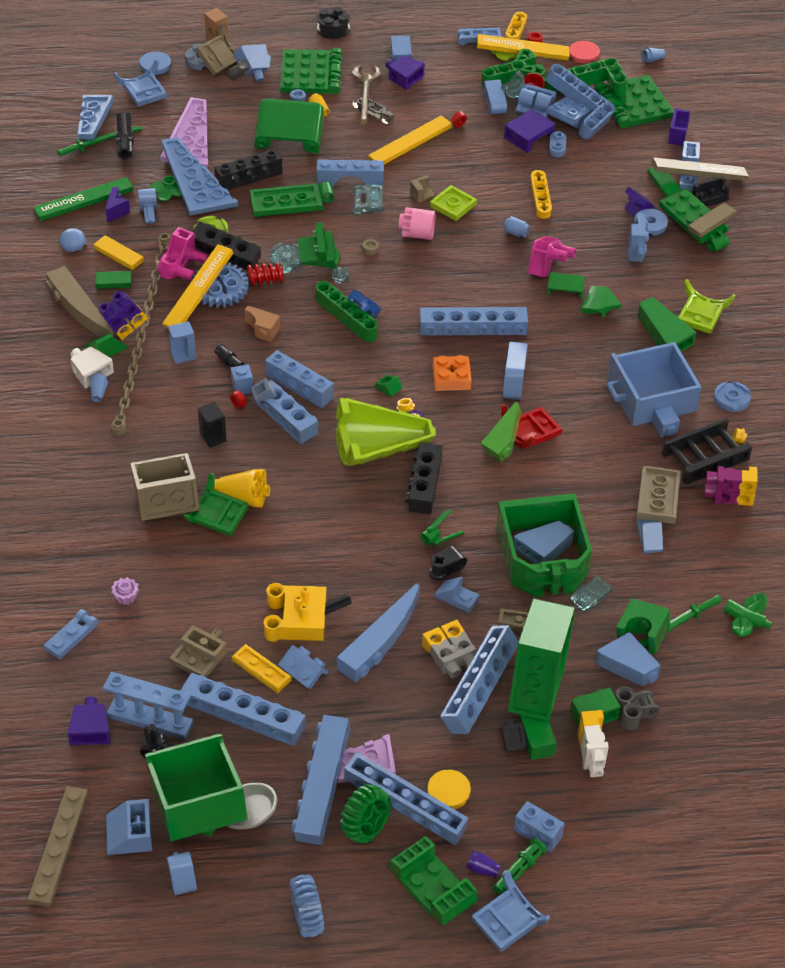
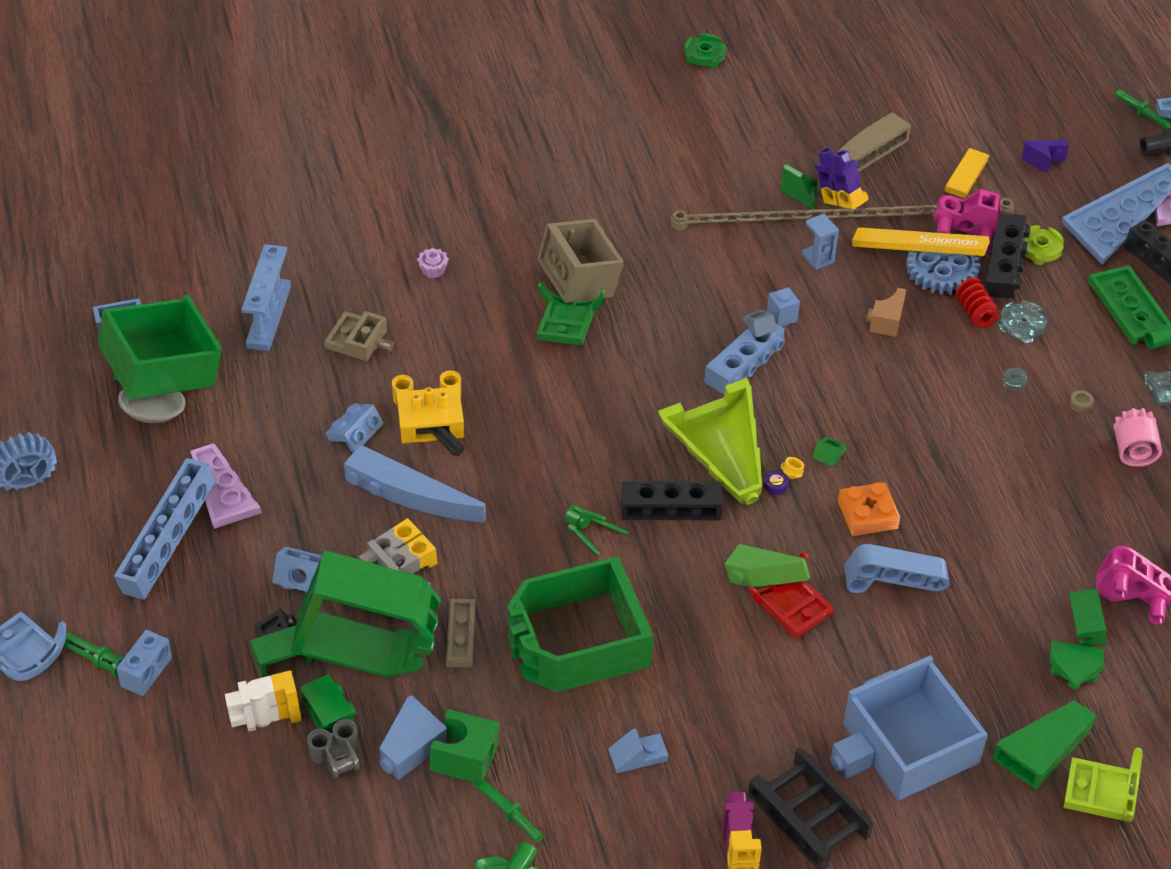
camera: 80 degrees right, 0 degrees up
(58, 847) = (102, 273): dark tan plate -> none
(71, 634) = (370, 235): medium blue plate -> none
(72, 240) = (969, 130): medium blue hair -> none
(81, 199) = (1048, 127): green tile -> none
(88, 363) = (761, 178): white torso -> none
(89, 724) = (243, 264): dark purple torso -> none
(98, 386) = (733, 191): medium blue cone -> none
(113, 279) = (918, 176): green tile -> none
(148, 204) = (1058, 175): medium blue beam -> none
(153, 741) = (226, 318): black axle -> none
(166, 188) = (1097, 189): green plate -> none
(181, 873) = (64, 359): medium blue beam -> none
(212, 424) = (699, 287): black panel -> none
(229, 357) = (819, 293): black pin -> none
(238, 399) = (751, 306): red tile -> none
(245, 486) = (603, 336): yellow cone -> none
(258, 715) = (284, 382): medium blue brick -> none
(261, 668) = (349, 392): yellow tile -> none
(299, 379) = (801, 359): medium blue brick -> none
(319, 249) = (1039, 344): green piece -> none
(321, 780) = (166, 454): medium blue brick -> none
(346, 311) = (941, 389): green beam -> none
(364, 303) = (964, 410): blue plate -> none
(365, 813) = (137, 491): green gear -> none
(432, 882) = (67, 575): green plate -> none
(446, 563) = (535, 536): black piece -> none
(450, 788) = (197, 578): yellow tile -> none
(456, 595) = (489, 556): medium blue slope -> none
(474, 321) = (974, 521): medium blue brick -> none
(482, 864) = (92, 616): dark purple cone -> none
(544, 542) = (584, 627): medium blue slope -> none
(591, 594) = (518, 694): clear light blue slope -> none
(658, 494) = (708, 754): dark tan tile -> none
(732, 396) = (939, 842): medium blue tile -> none
(739, 436) = (854, 850): yellow plate -> none

